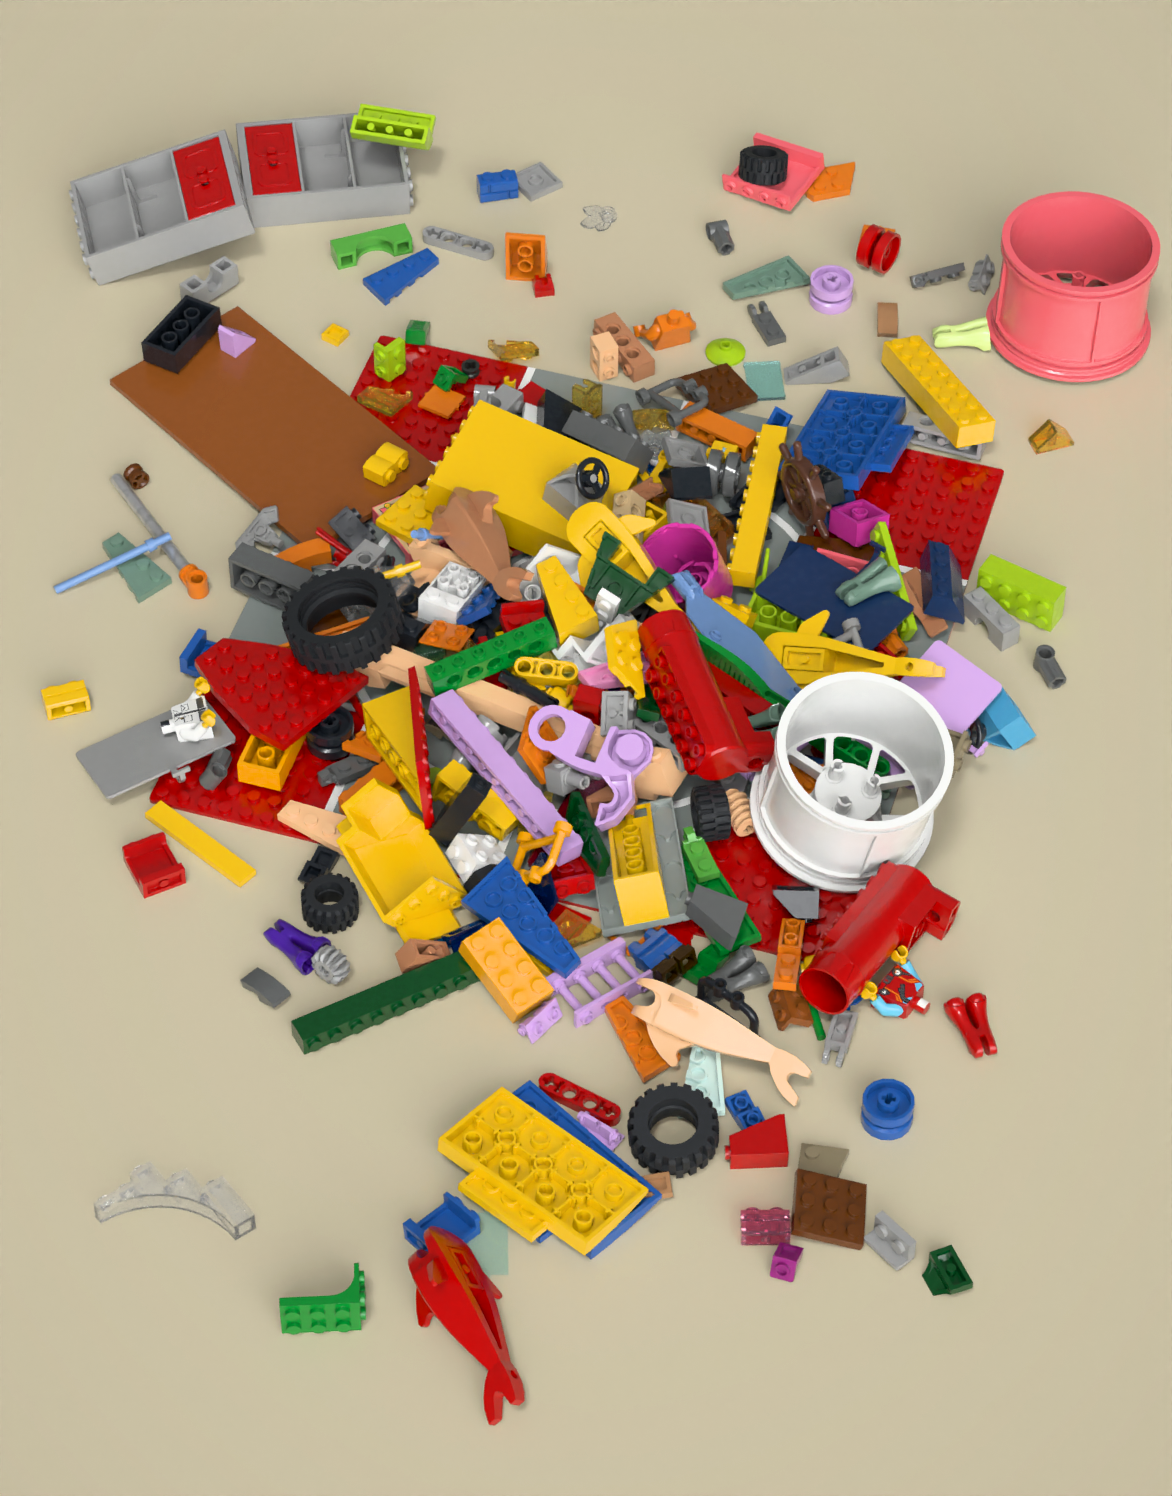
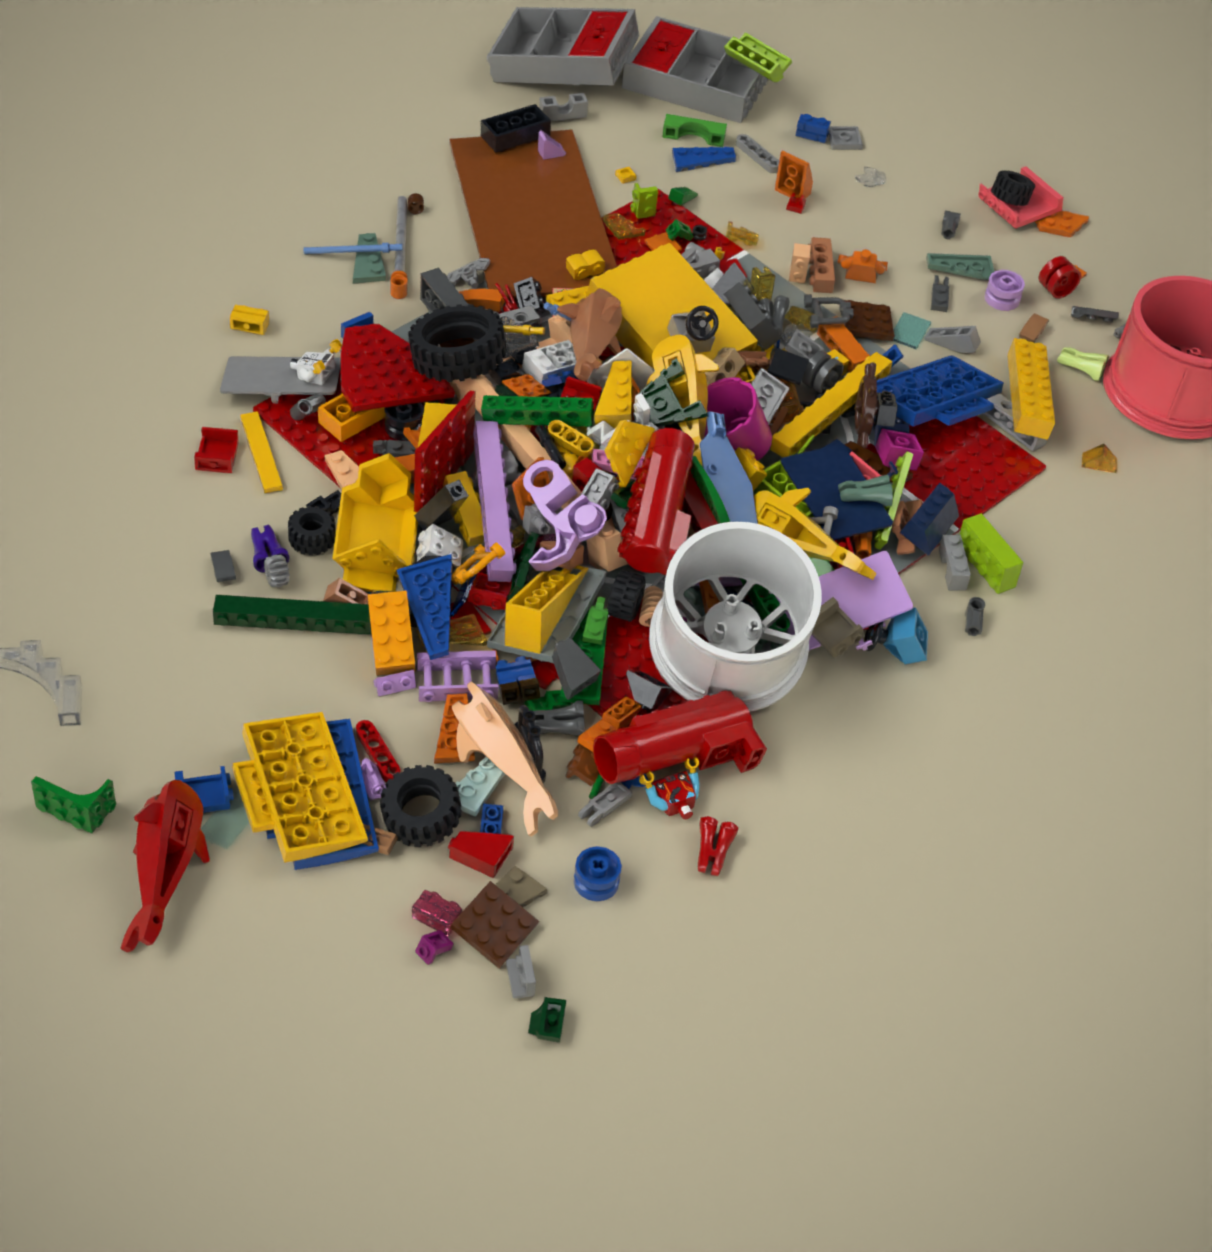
camera: 25 degrees right, 0 degrees up
(725, 351) = (896, 299): lime dish -> none

